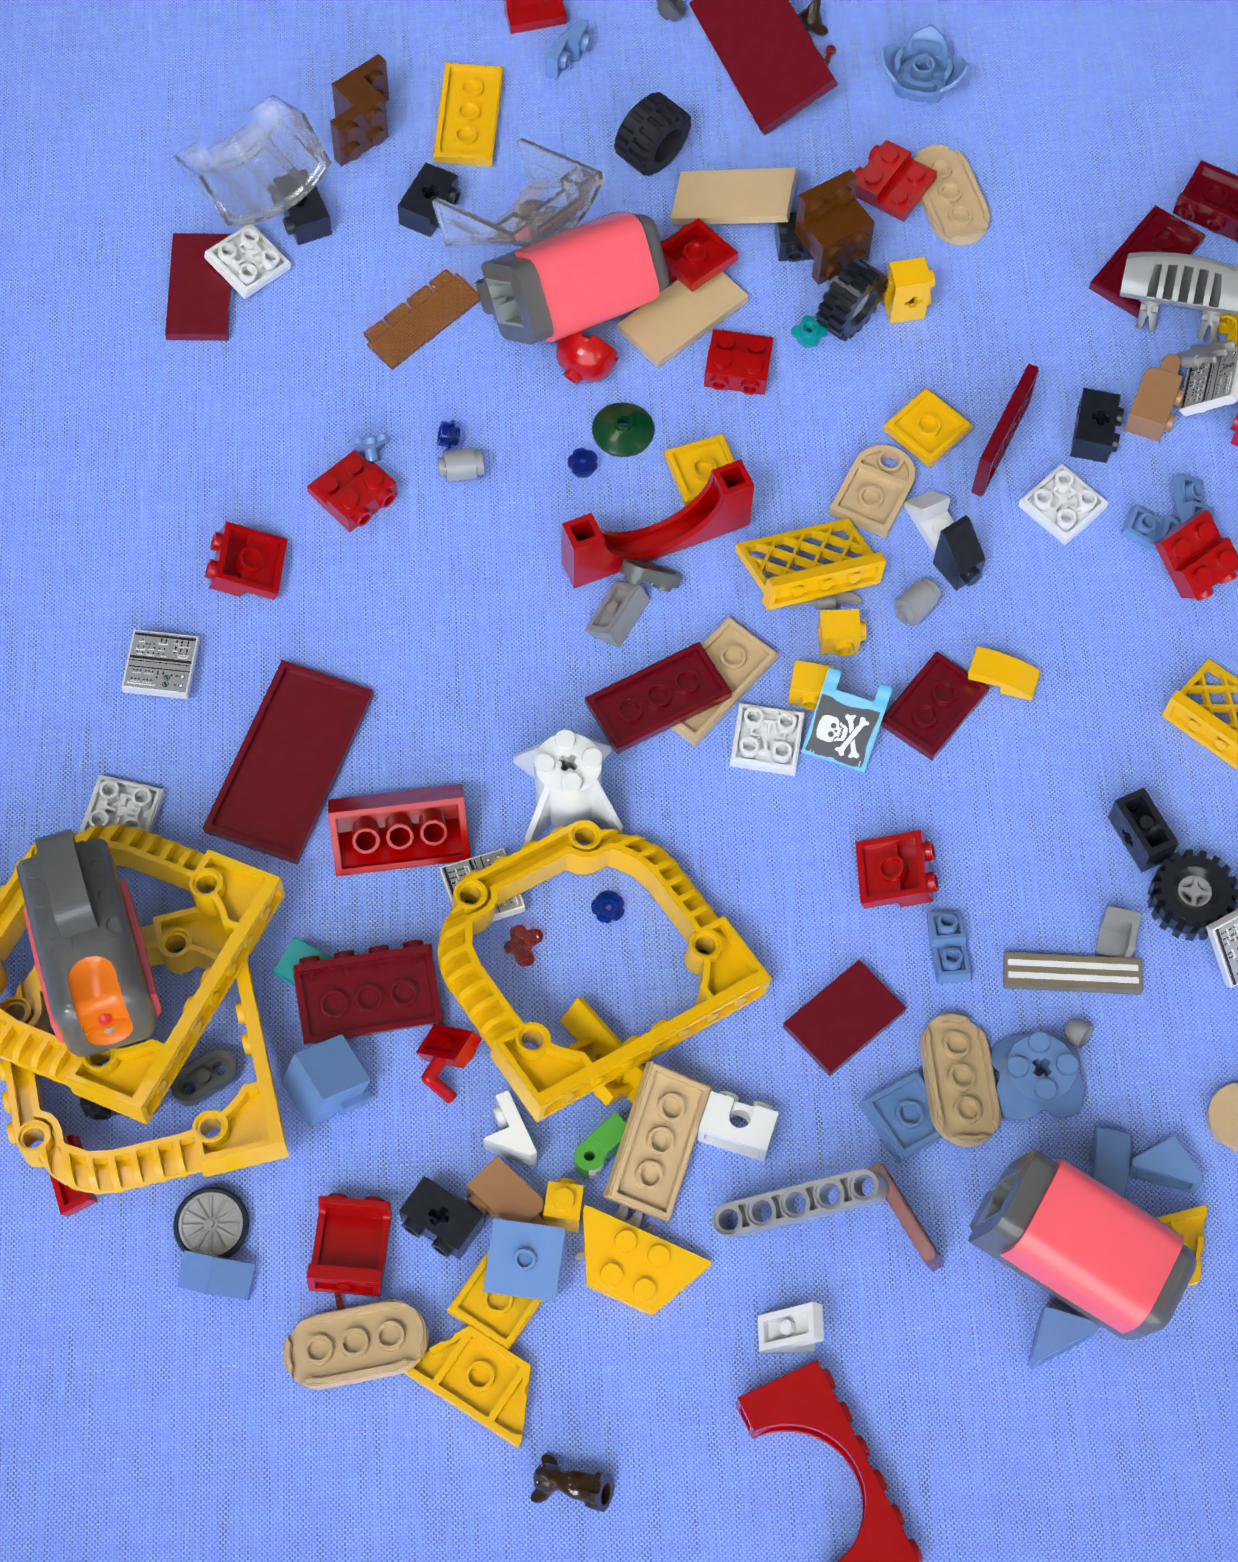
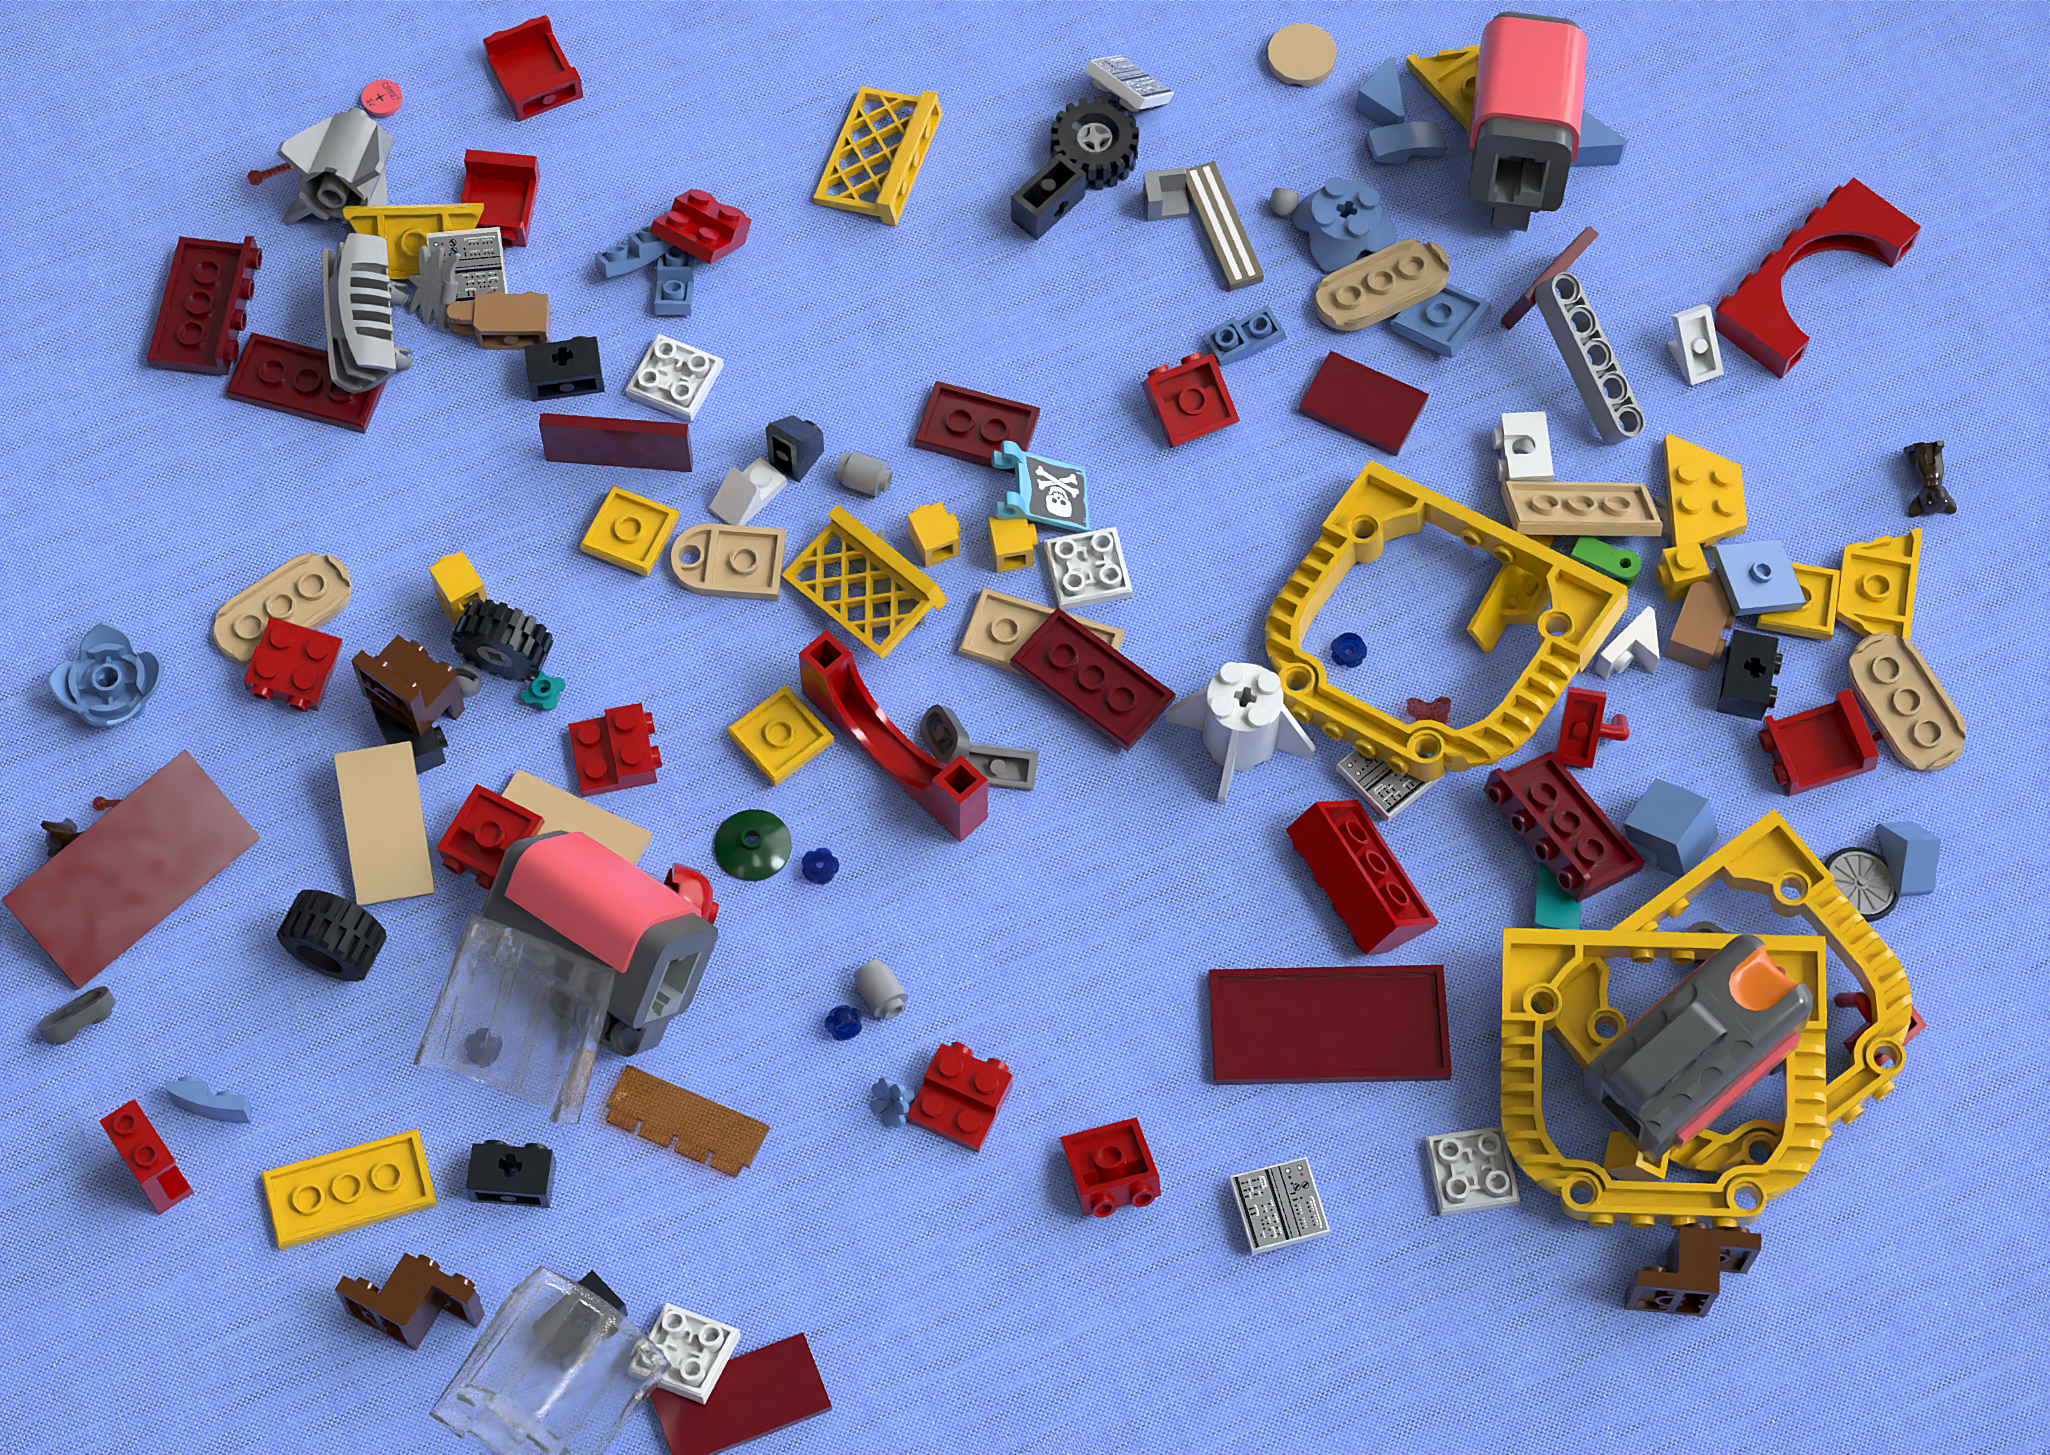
camera: 110 degrees left, 0 degrees up
(999, 669) = (917, 369): yellow slope -> none

